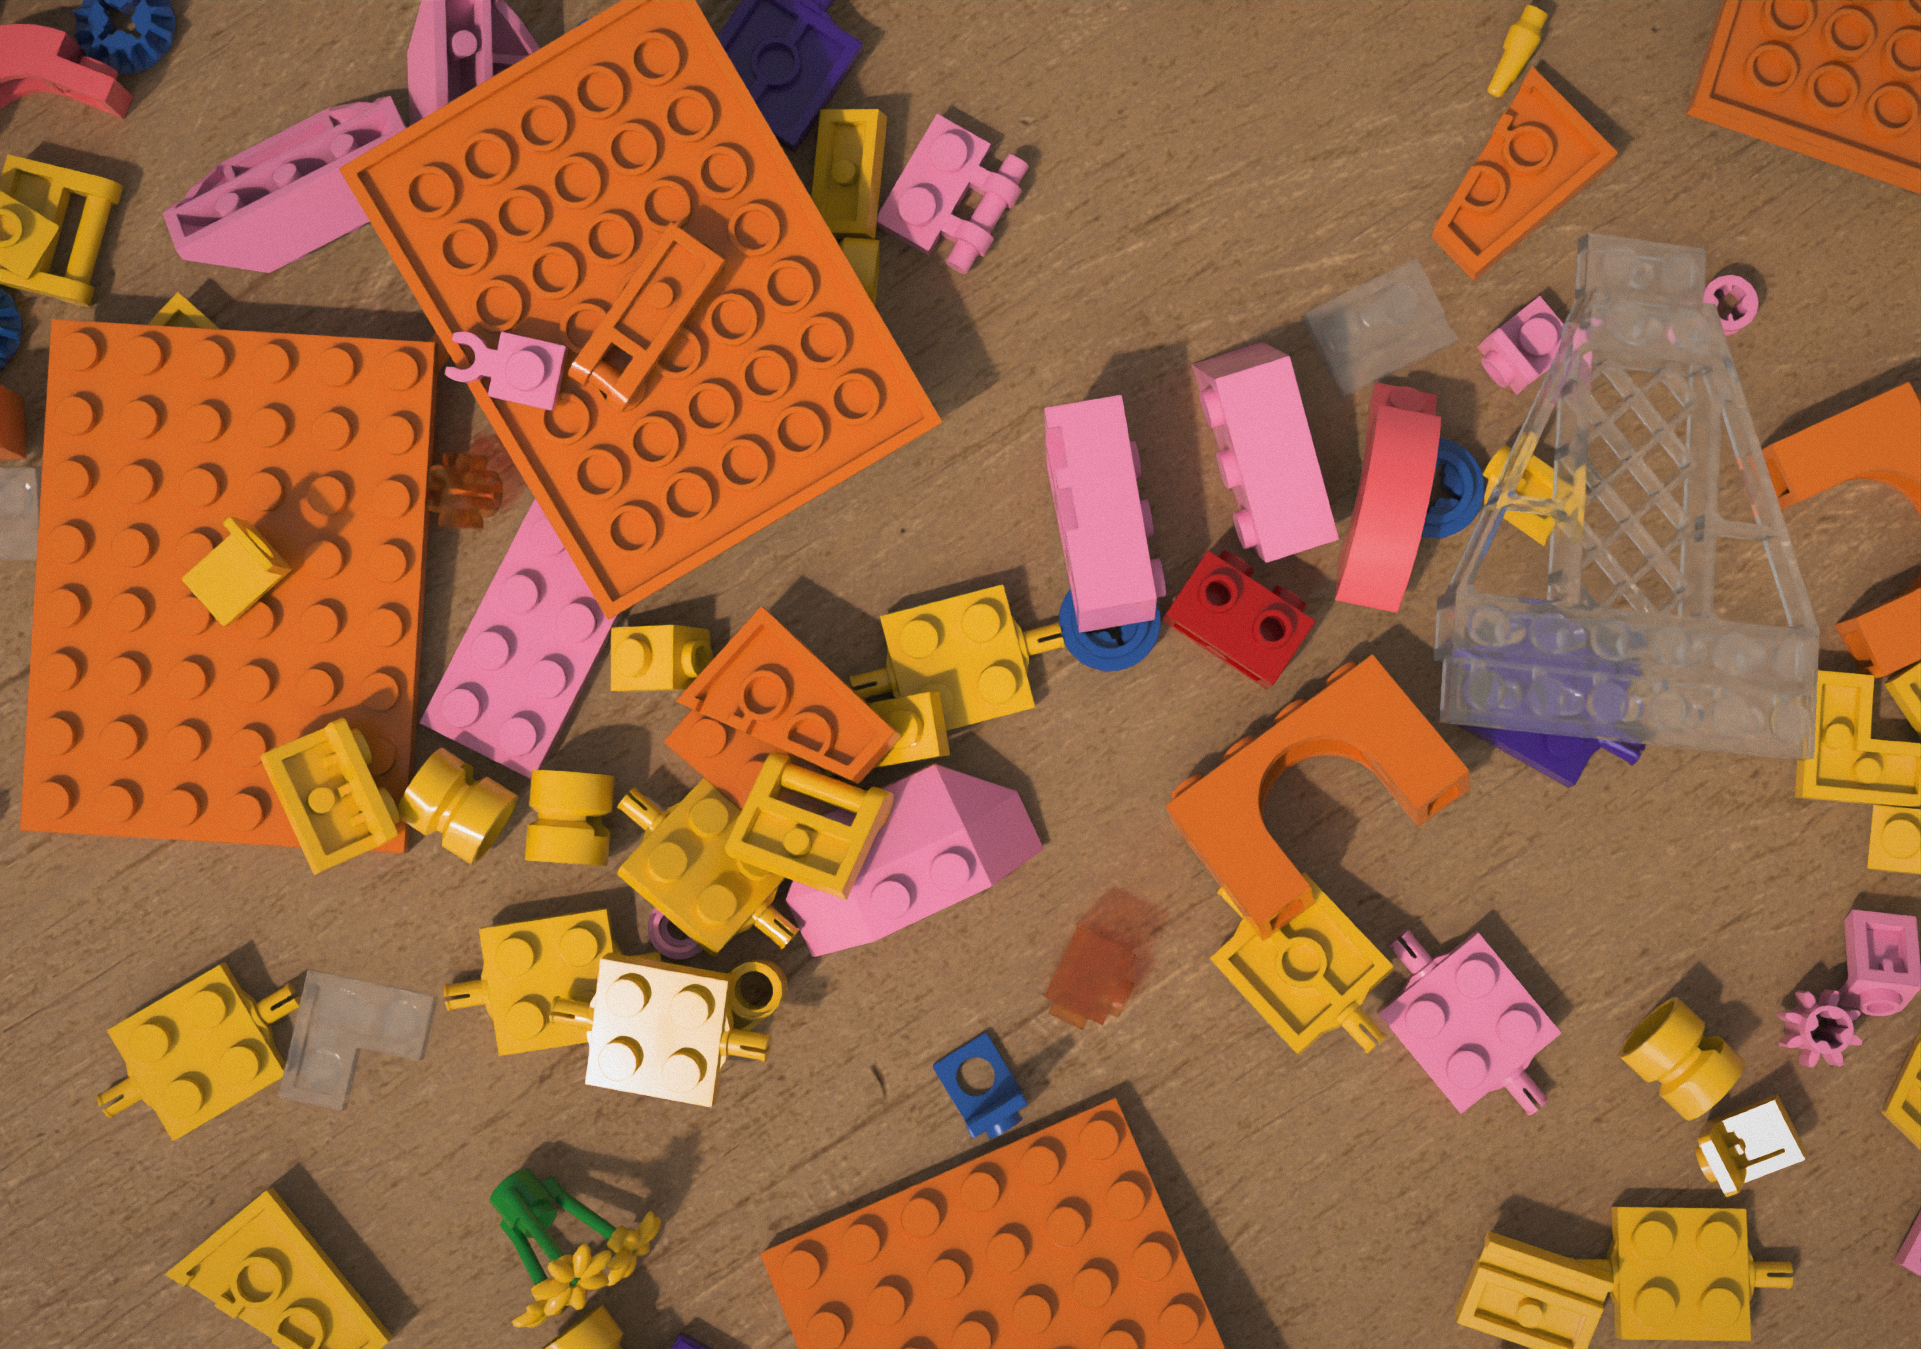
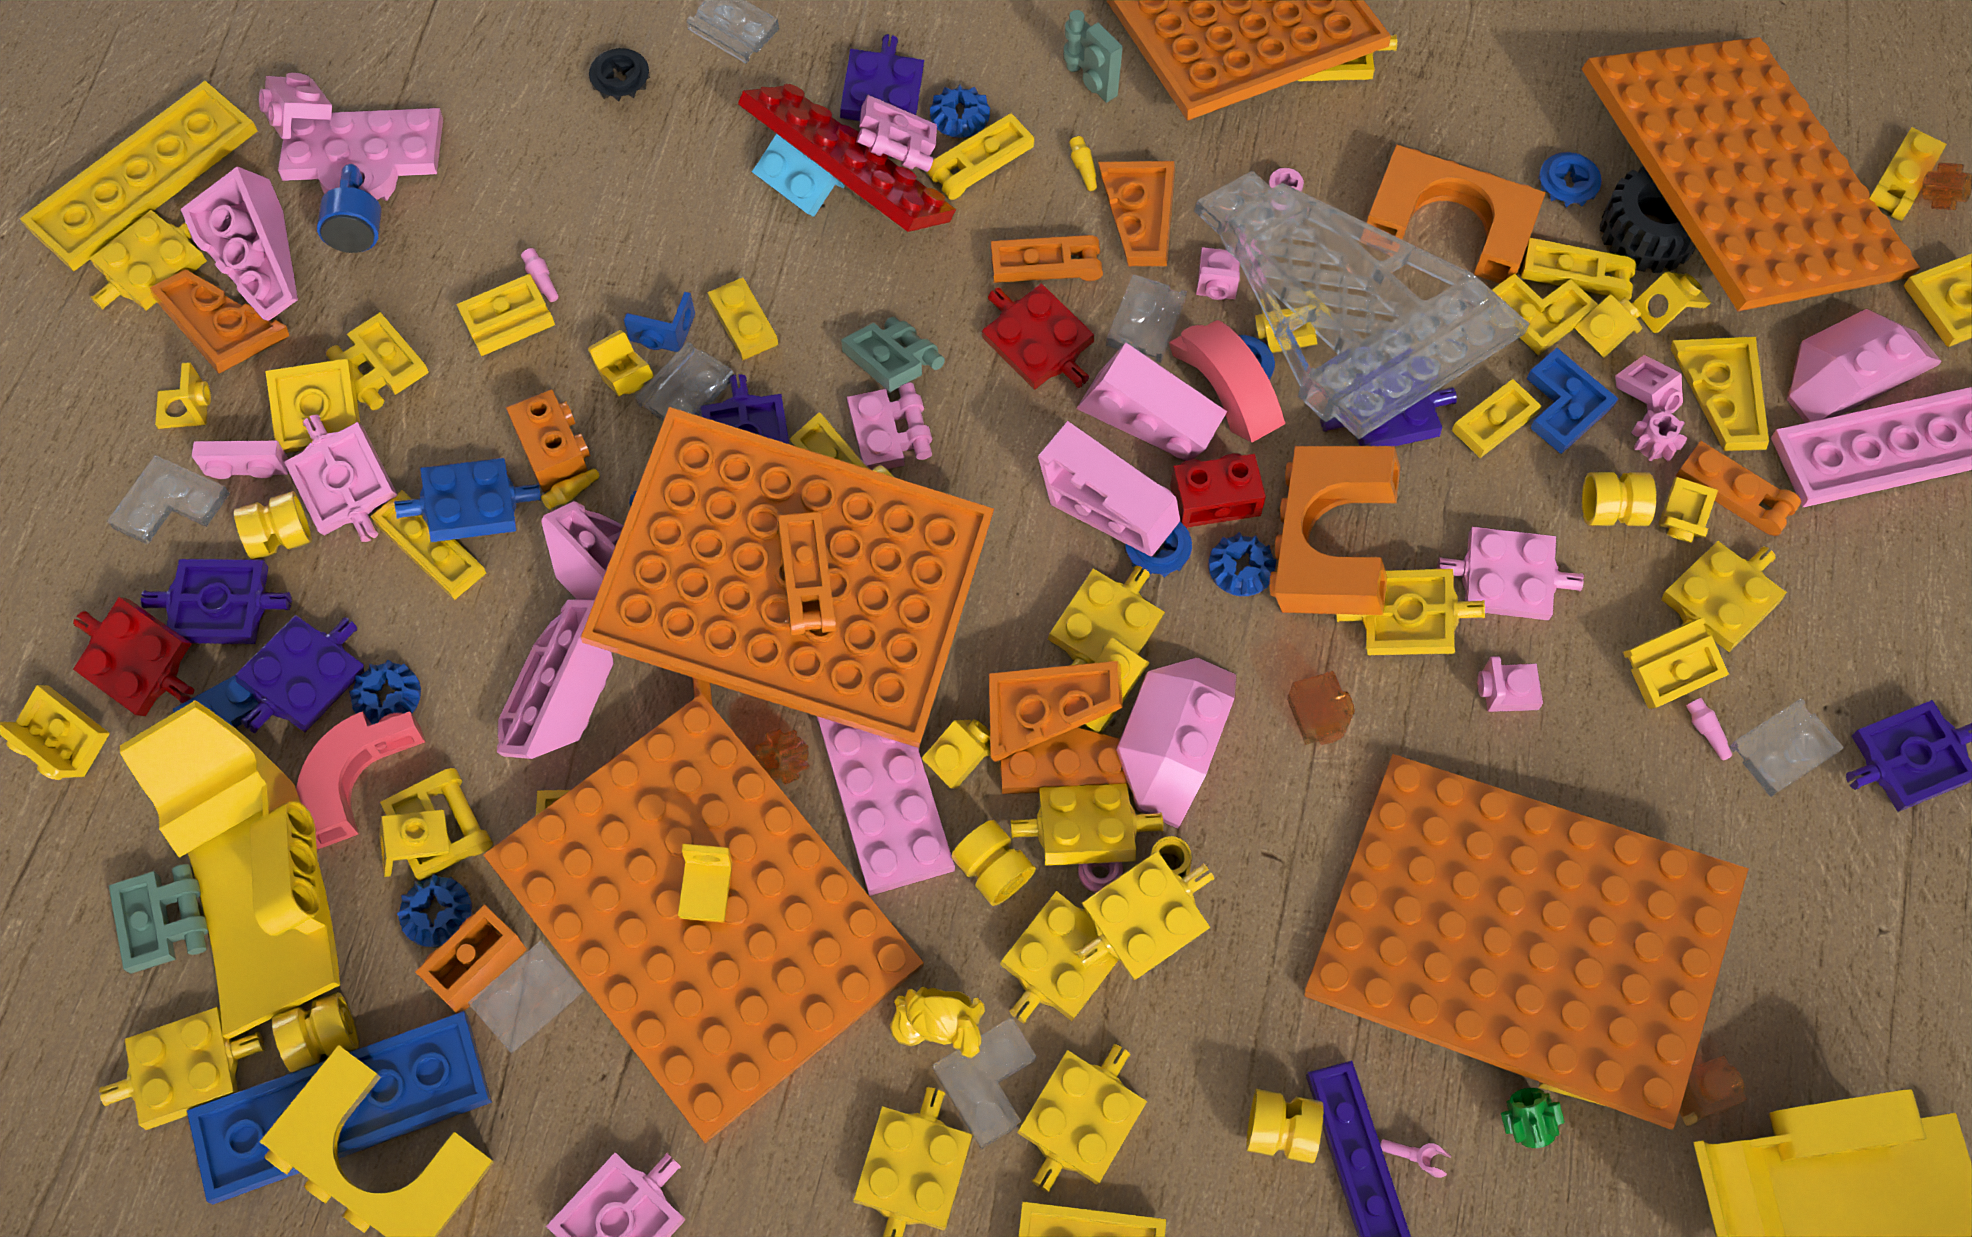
camera: 40 degrees left, 20 degrees down
(331, 795) = (863, 952): yellow bracket -> none
(361, 932) = (938, 1018): none -> yellow hair
(411, 1160) = (1081, 1117): none -> yellow plate
(460, 808) = (930, 909): yellow wheel -> none
(519, 370) = (764, 653): bright pink plate -> none
(527, 1213) = (1169, 1077): plant -> none
(801, 842) = (1123, 756): yellow plate -> none
(993, 1110) = (1342, 810): blue bracket -> none
(1019, 105) = (885, 356): none -> sand green plate
(1153, 716) = (1250, 580): none -> blue gear
(1232, 234) = (1038, 336): none -> red plate
(1327, 1145) = (1510, 686): none -> bright pink bracket
(1338, 141) = (1046, 259): none -> orange plate
(1655, 830) = (1496, 418): none -> yellow plate
(1777, 896) = (1576, 398): none -> blue plate
(1843, 1170) = (1740, 489): none -> orange plate

